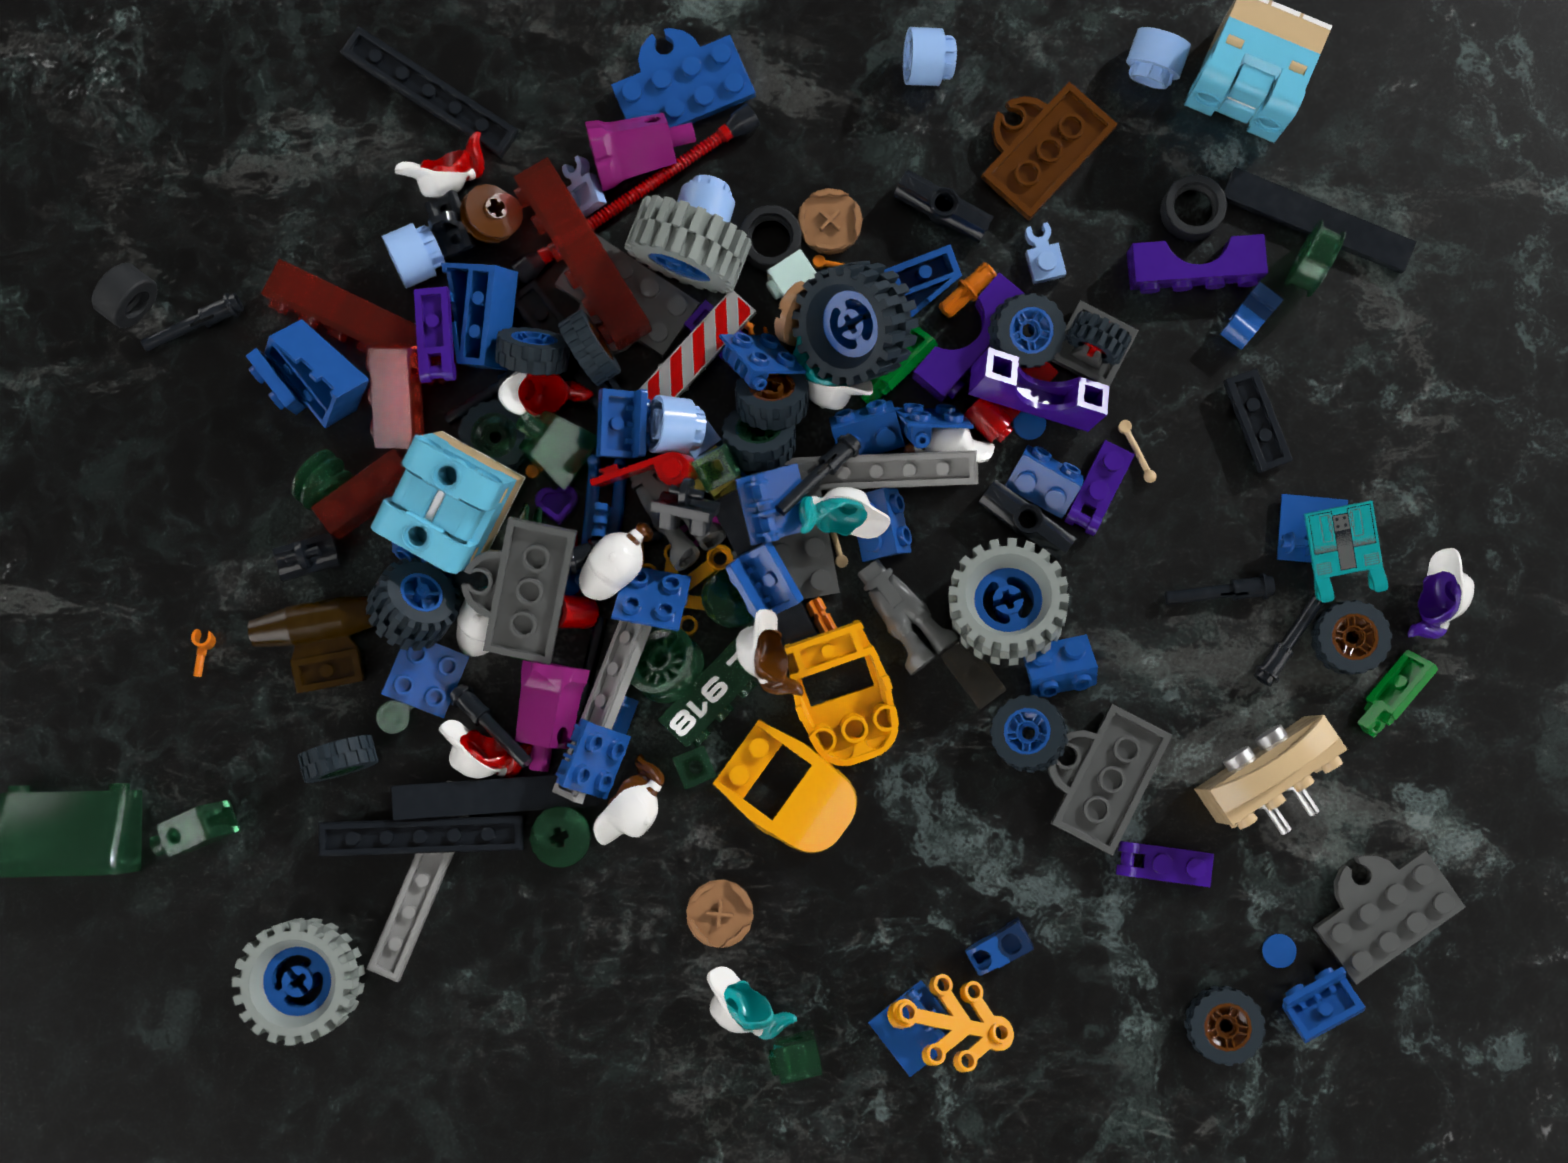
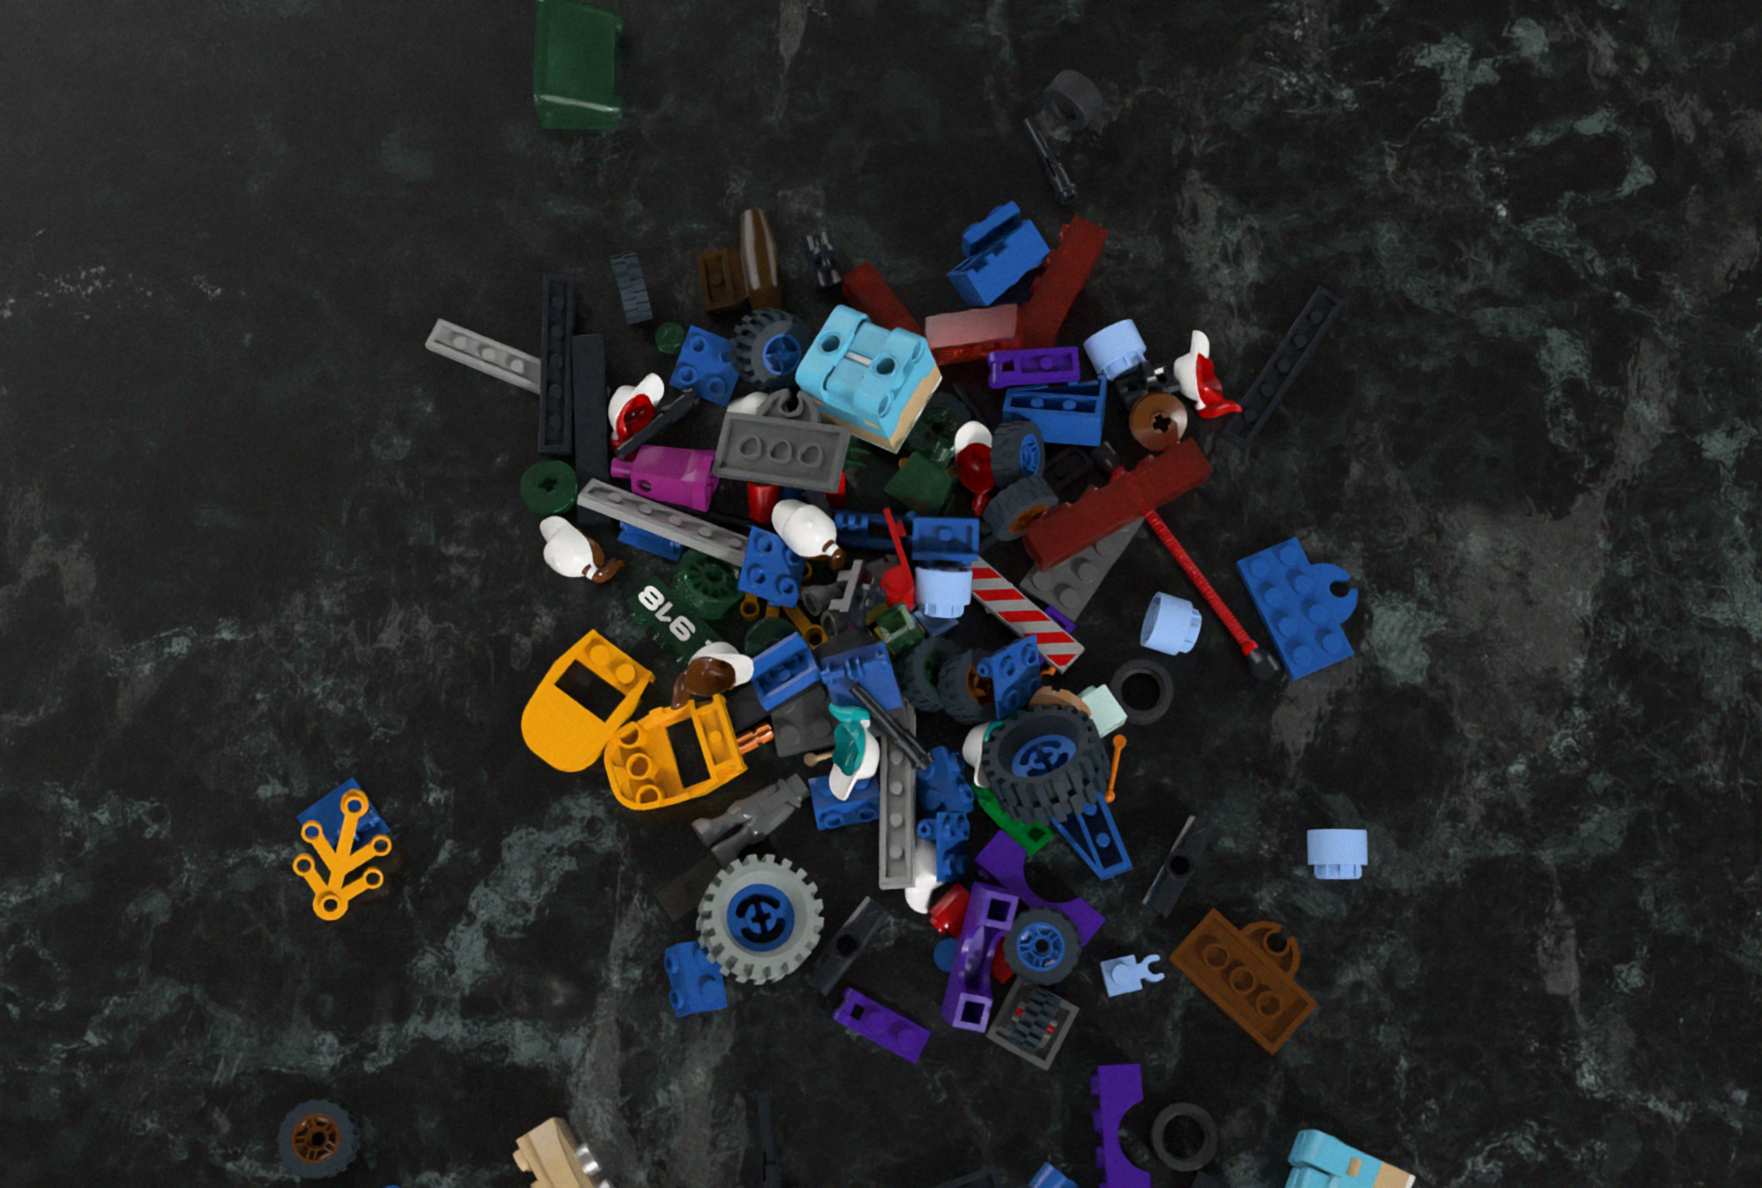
camera: 90 degrees right, 10 degrees down
(195, 829) = (570, 160): clear green torso -> none
(201, 650) = (741, 174): orange hand -> none
(272, 1003) = (418, 236): light grey wheel -> none
(318, 478) = (897, 268): clear green piece -> none
(557, 503) = (871, 487): dark purple tile -> none
(584, 187) = (1185, 511): light blue plate -> none
(594, 759) = (618, 513): blue hinge -> none
(634, 146) = (1230, 555): magenta piece -> none
(683, 763) = (607, 602): clear green plate -> none
(688, 244) = (1124, 601): light grey wheel -> none
(719, 913) = (468, 637): medium nougat tile -> none
(742, 1008) = (376, 653): teal hair -> none
(795, 1057) = (322, 702): clear green brick -> none
(830, 221) = (1161, 752): medium nougat tile -> none
(967, 290) = (1089, 891): orange axle -> none
(999, 947) = (415, 909): leg -> none
(1029, 714) = (624, 922): black wheel -> none
(1045, 480) = (889, 967): blue bracket -> none
(1107, 777) = (580, 1022): dark grey plate -> none
(1124, 427) = (945, 1056): tan hinge -> none
(1157, 57) = (1347, 1099): light blue piece -> none
(1166, 864) = (487, 1083): dark purple plate -> none

